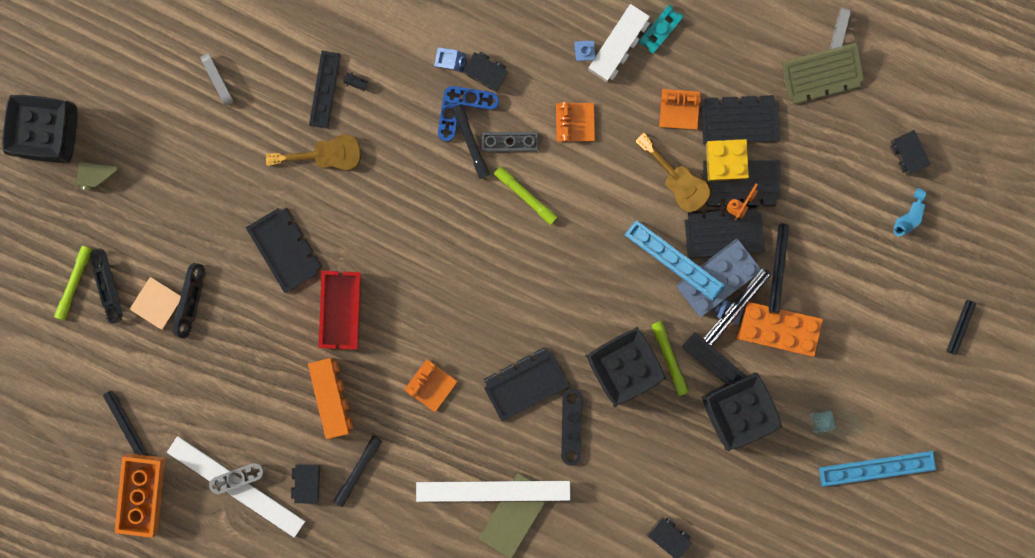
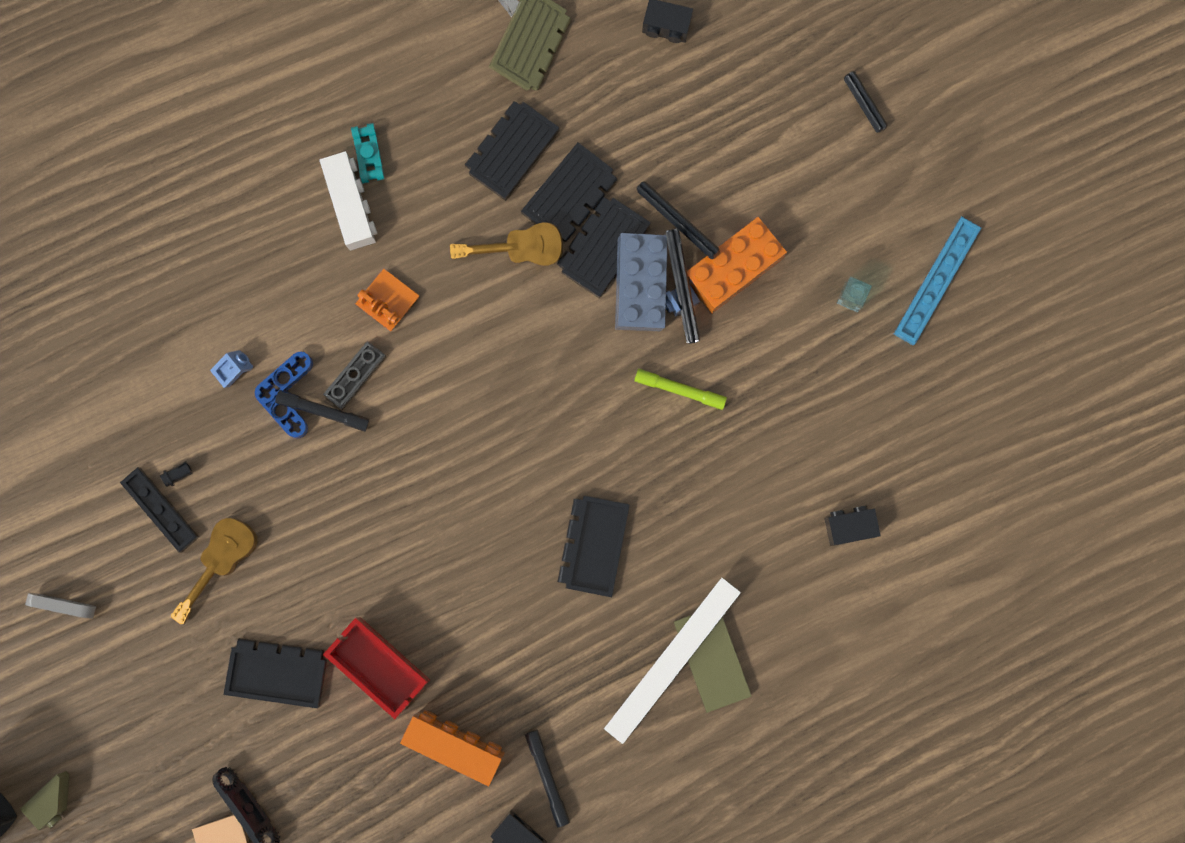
camera: 50 degrees left, 5 degrees down
(430, 385) = (522, 638): orange hinge -> none
(485, 71) = (270, 344): black brick -> none
(541, 209) = (443, 396): lime piece -> none
(571, 427) = (671, 534): black plate -> none
(584, 50) = (326, 235): medium blue bracket -> none
(626, 367) = (655, 434): black piece -> none
(675, 261) = (592, 308): dark azure tile -> none
(679, 109) = (455, 195): orange hinge -> none
(713, 360) = (721, 349): black tile -> none
(727, 160) = (537, 186): yellow brick -> none
(738, 208) = (590, 210): orange hinge -> none
(742, 412) = (786, 359): black piece -> none
(909, 221) = (730, 64): dark azure arm -> none

